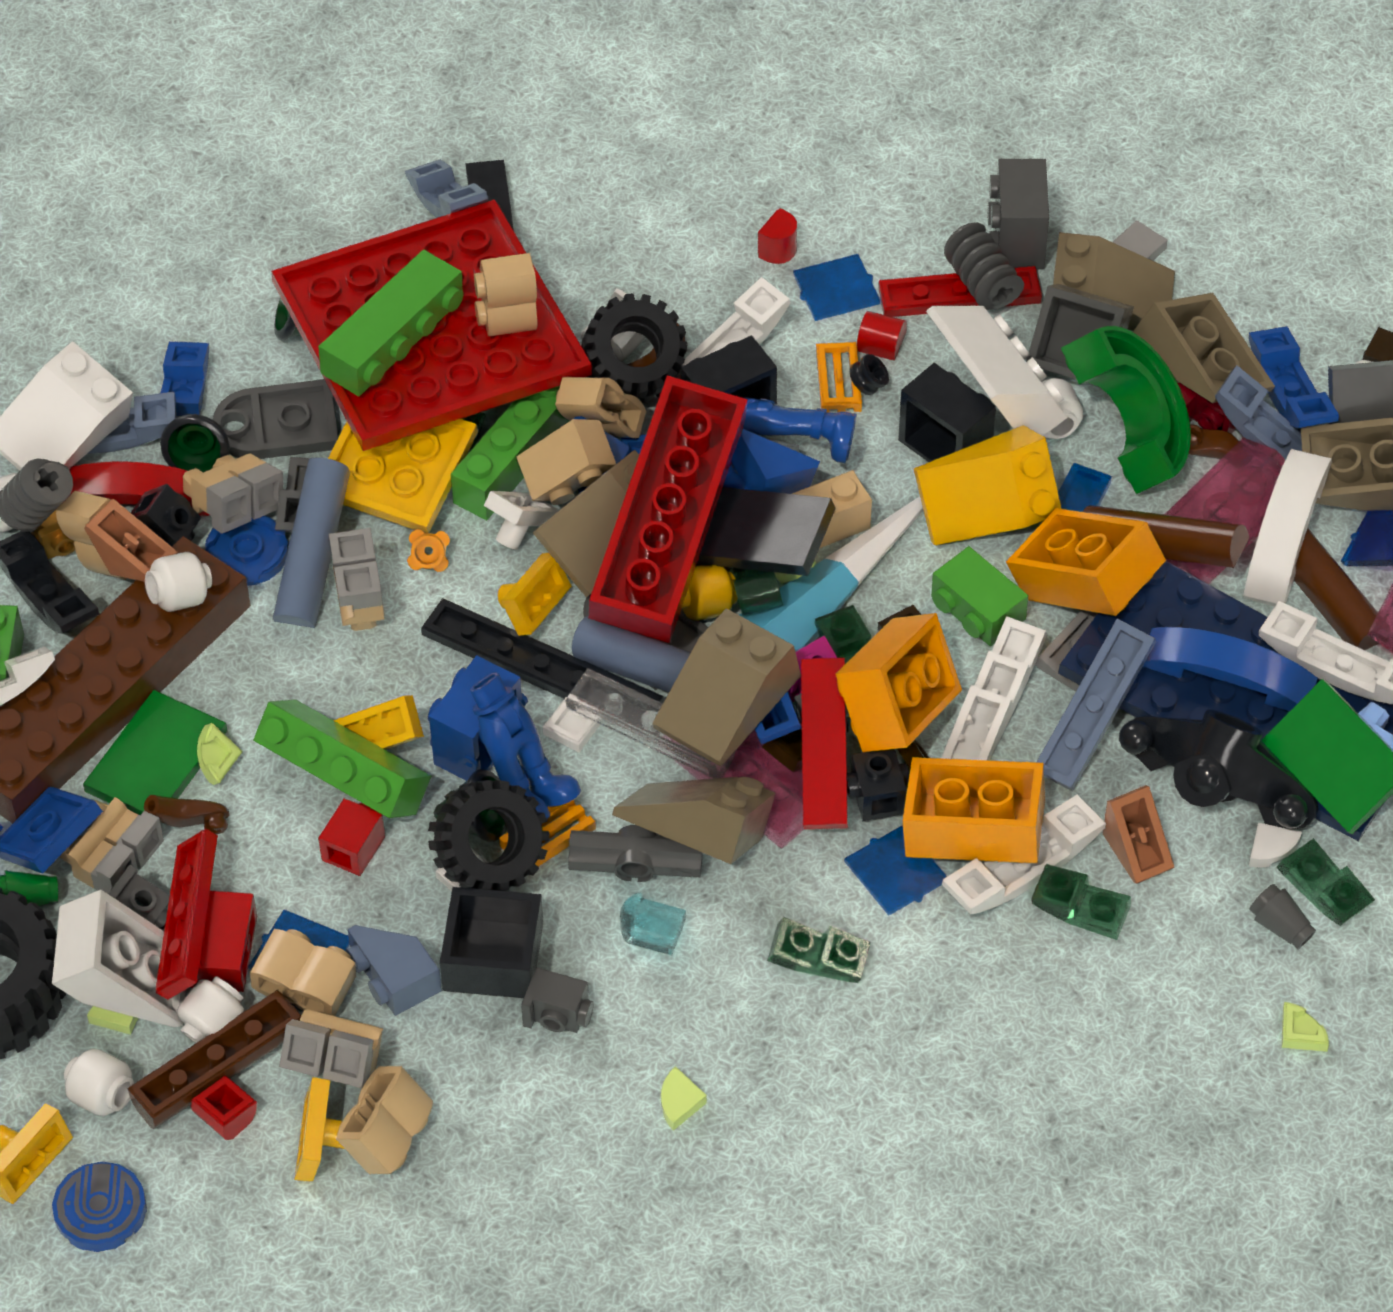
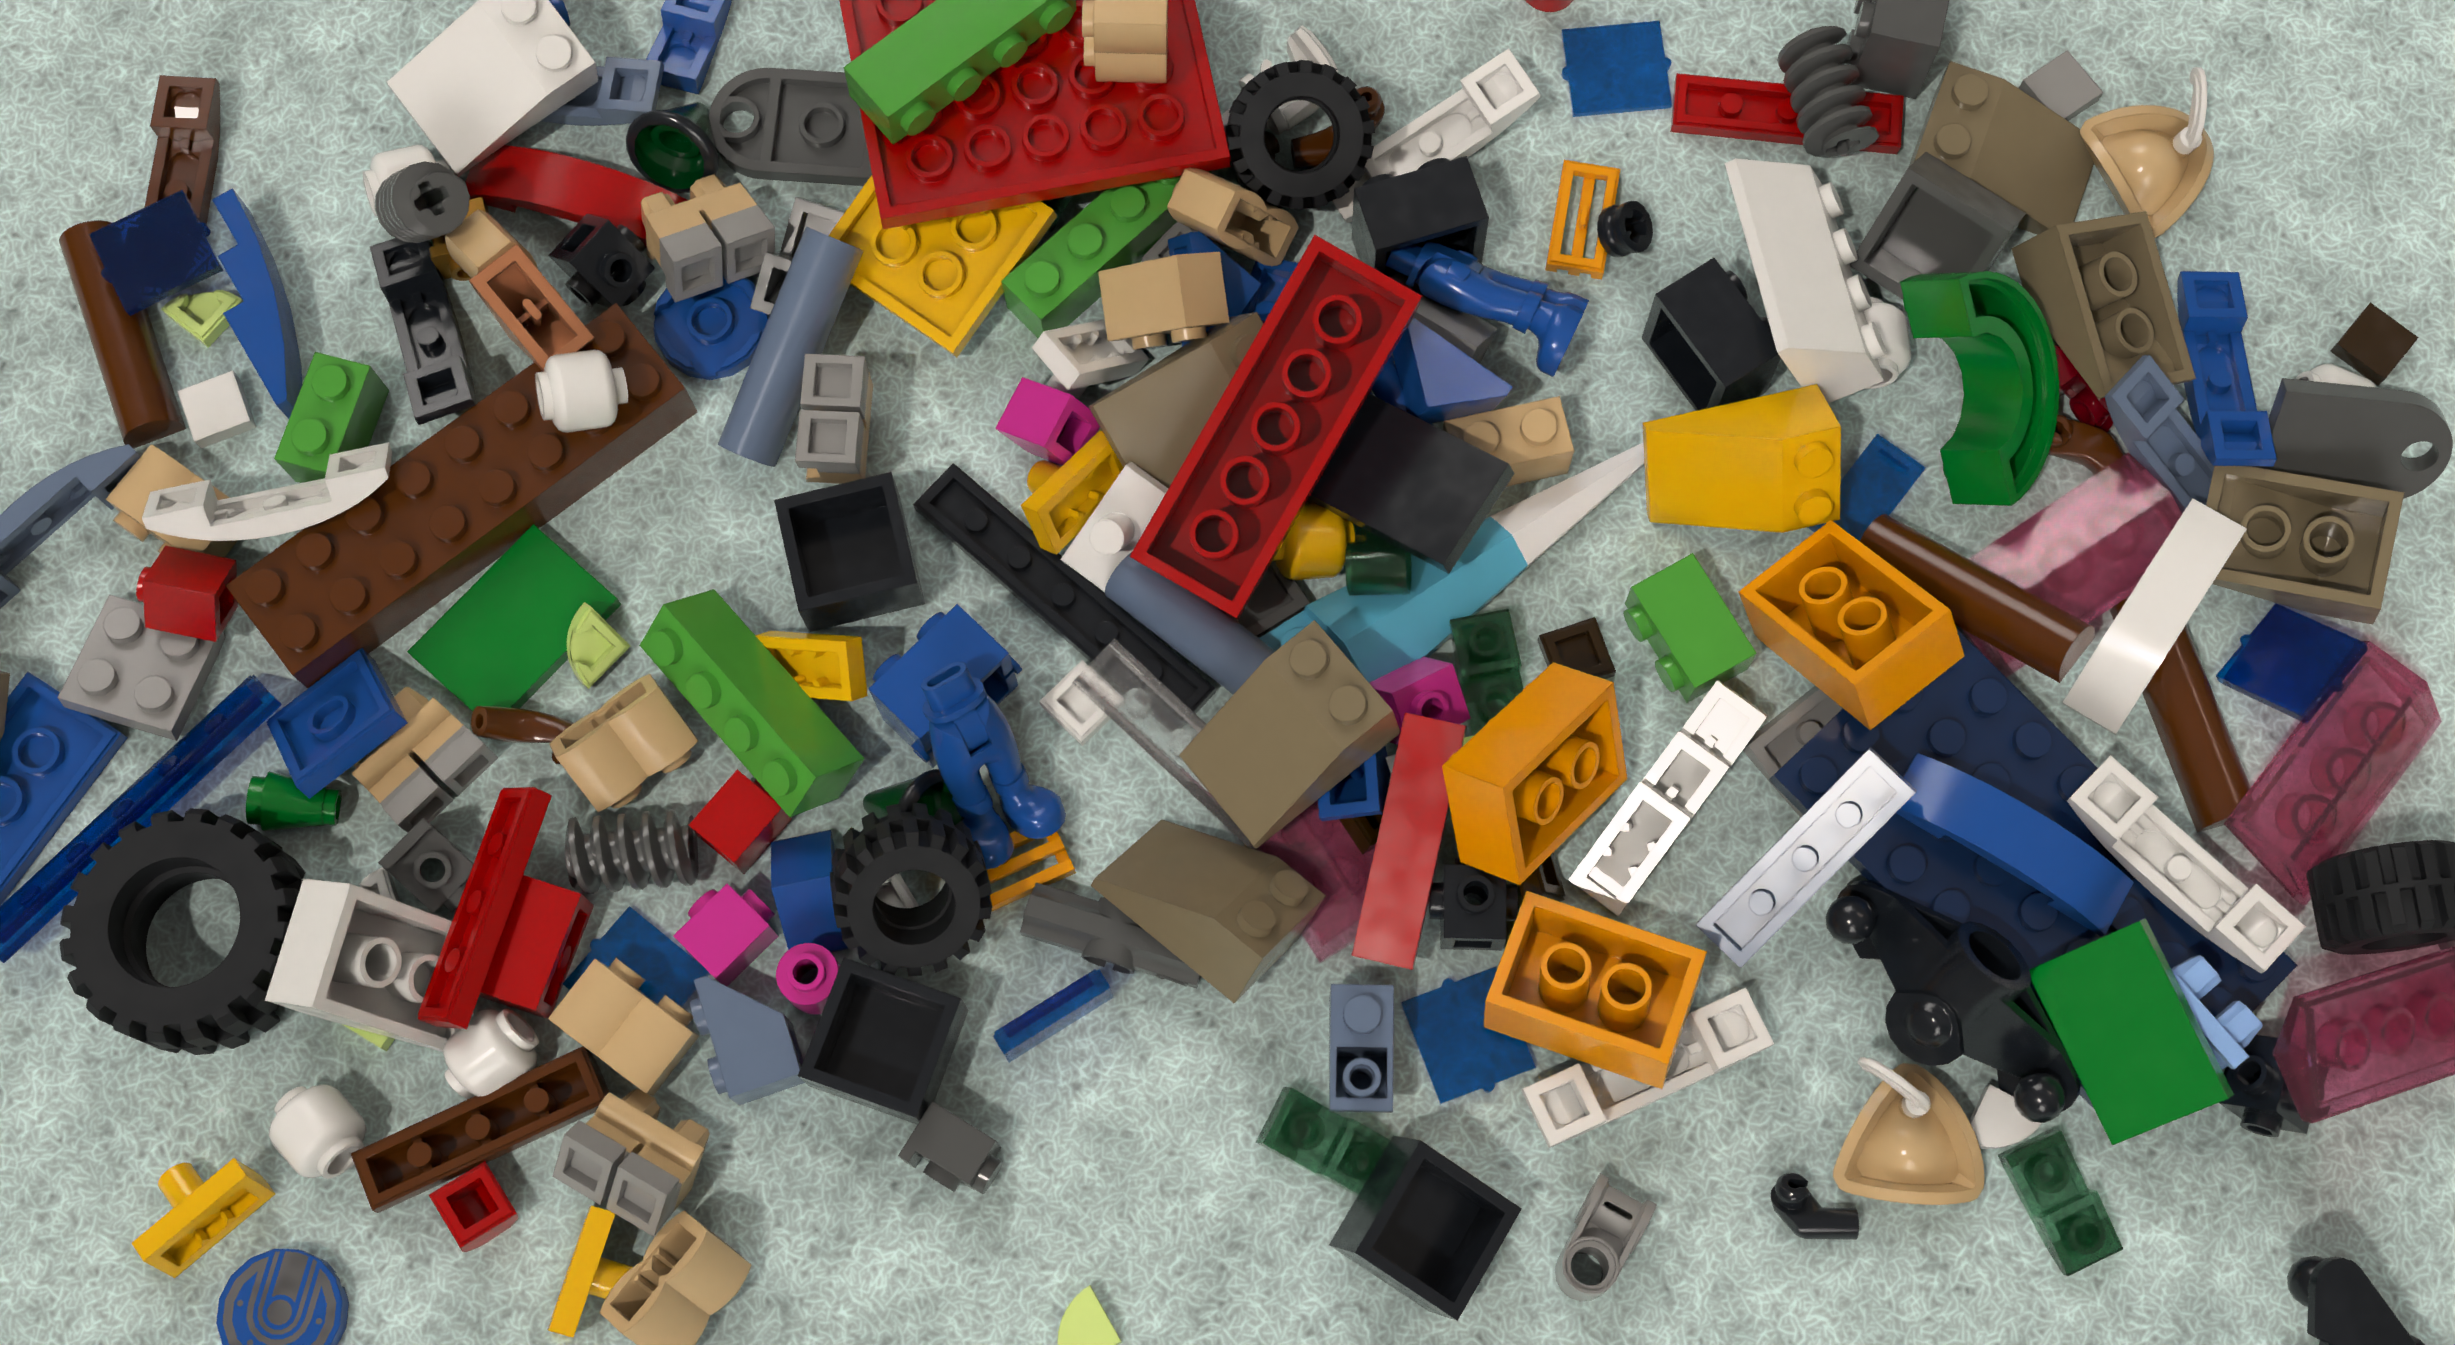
camera: 15 degrees right, 20 degrees up
(258, 803) = (624, 744): none -> tan brick
(279, 867) = (631, 853): none -> dark grey piece
(360, 901) = (727, 932): none -> dark pink brick
(387, 654) = (849, 552): none -> black piece
(413, 876) = (803, 890): none -> blue slope
(428, 915) = (794, 964): none -> dark pink brick
(435, 560) = (943, 396): light orange plate -> none
(504, 554) = (1041, 415): none -> dark pink brick
(567, 608) = (1115, 525): none -> white tile
(603, 909) = (1053, 1015): none -> clear blue tile
(651, 924) = (1111, 1053): clear light blue plate -> none
(823, 875) = (1361, 1048): none -> sand blue slope
(881, 335) = (1658, 165): red brick -> none
(899, 971) = (1425, 1227): none -> black piece
(1021, 962) = (1607, 1230): none -> light grey piece
(1074, 901) = (1709, 1152): clear green slope -> none
(1137, 834) = (1815, 1074): nougat slope -> none
(1157, 927) = (1806, 1216): none -> black arm
(1210, 265) = (2153, 155): none -> tan hat
(1213, 862) = (1910, 1142): none -> tan hat
(1282, 916) = (1985, 1245): dark grey cone -> none

